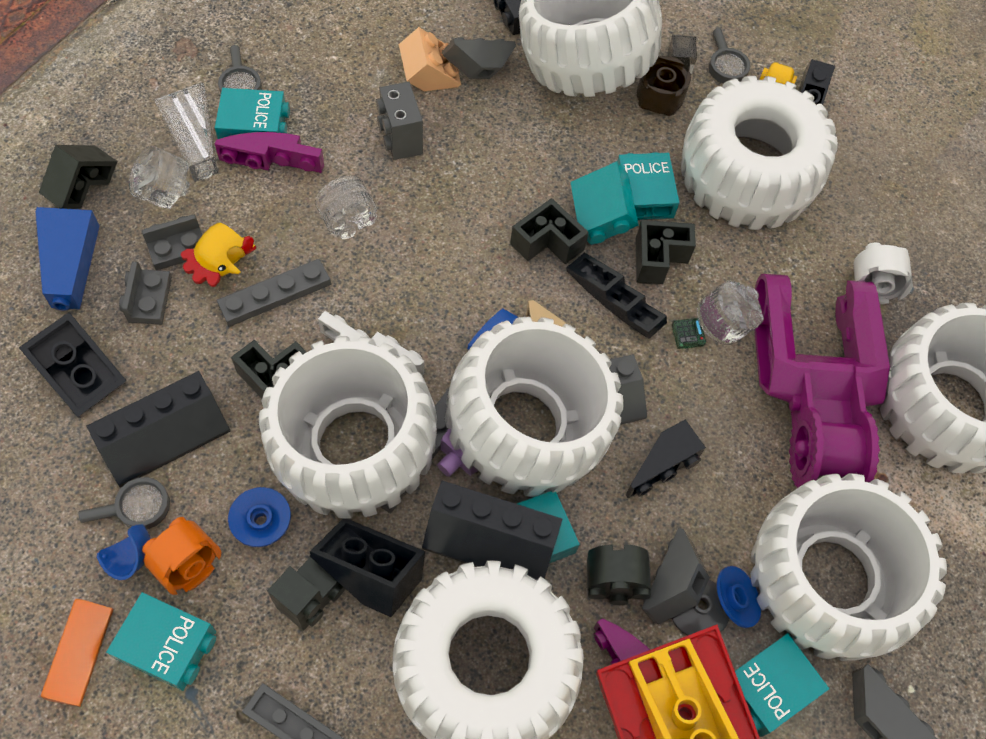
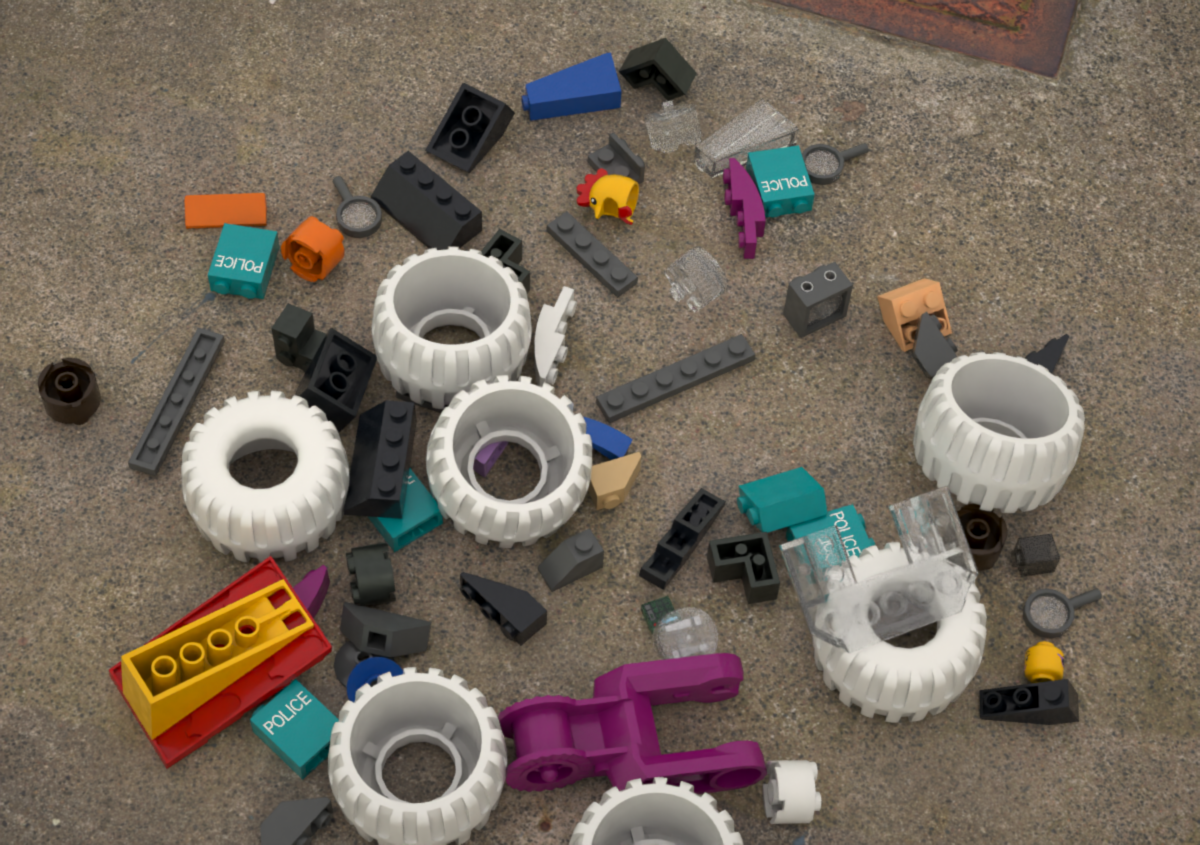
camera: 80 degrees right, 5 degrees down
(126, 556) = (305, 208): blue helmet -> none
(145, 295) = (555, 158): dark grey bracket -> none
(252, 505) = (356, 290): blue dish -> none
(442, 260) = (675, 378): none -> dark grey plate
(550, 228) = (733, 456): pearl dark grey brick -> none
(760, 136) = (892, 602): none -> clear slope

